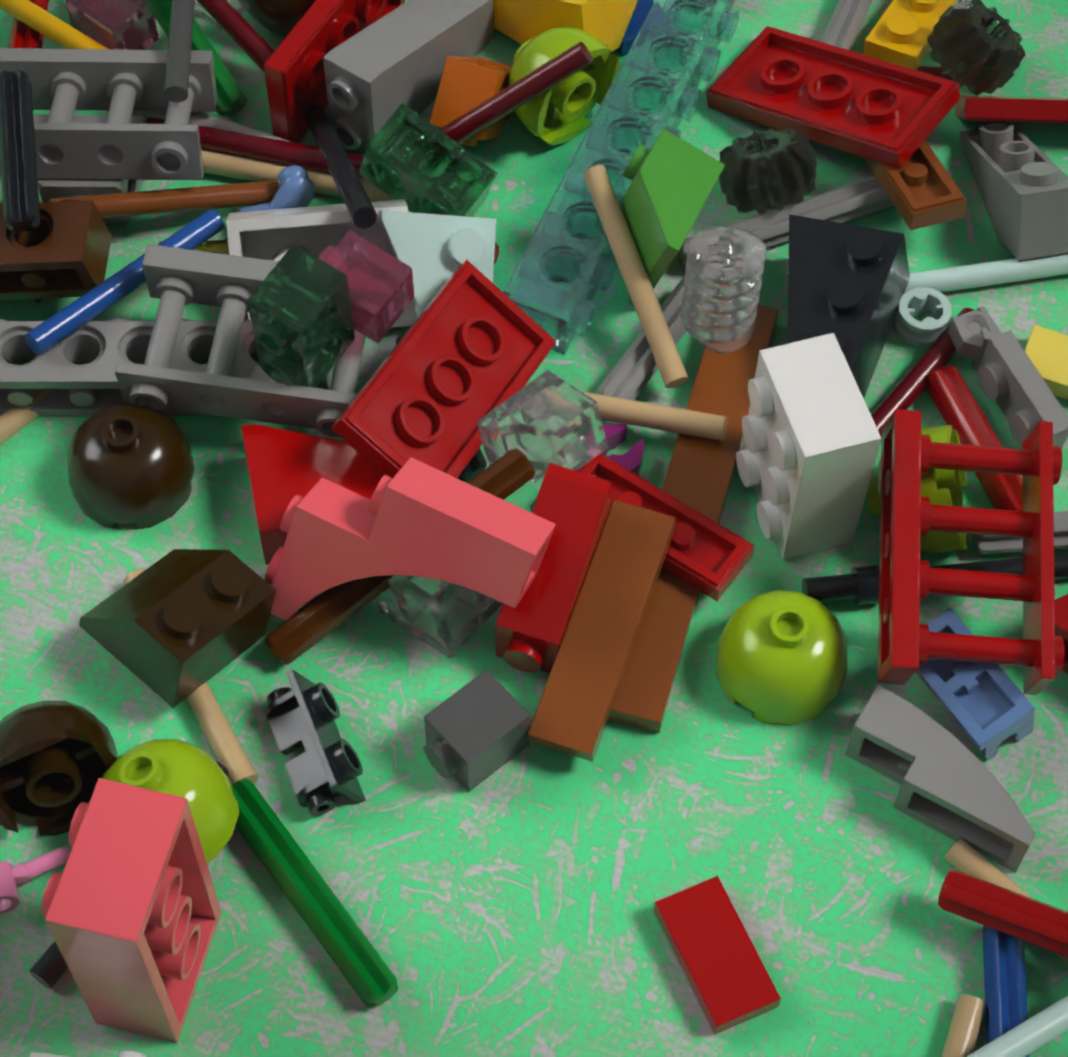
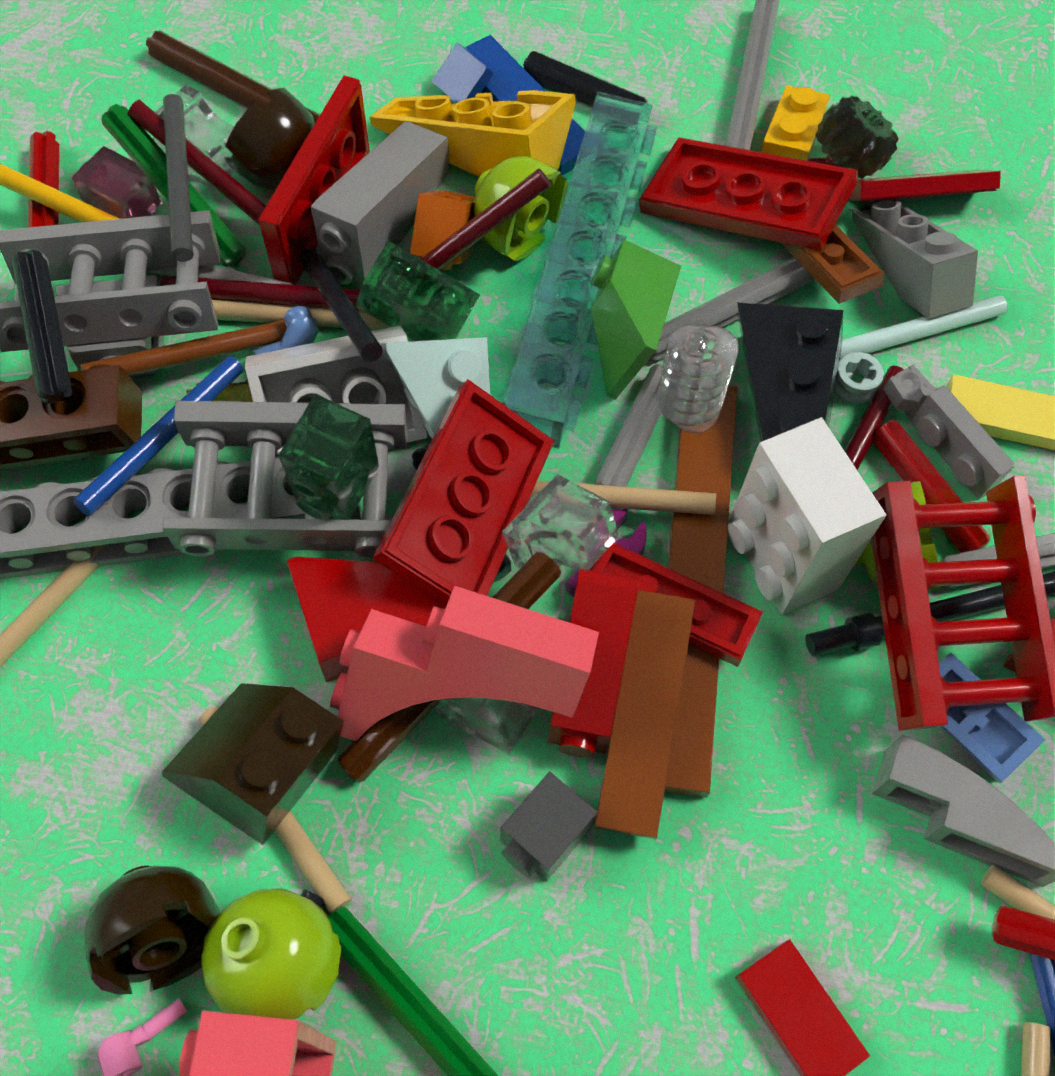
camera: 10 degrees left, 5 degrees up
(130, 466) = (189, 607): dark brown cylinder -> none
(329, 762) = (417, 880): hinge -> none
(376, 281) = (394, 414): clear pink brick -> none
(635, 277) = (614, 374): tan bar -> none
(768, 170) = (710, 263): clear smoke gear -> none
(782, 657) = (803, 712): lime cylinder -> none

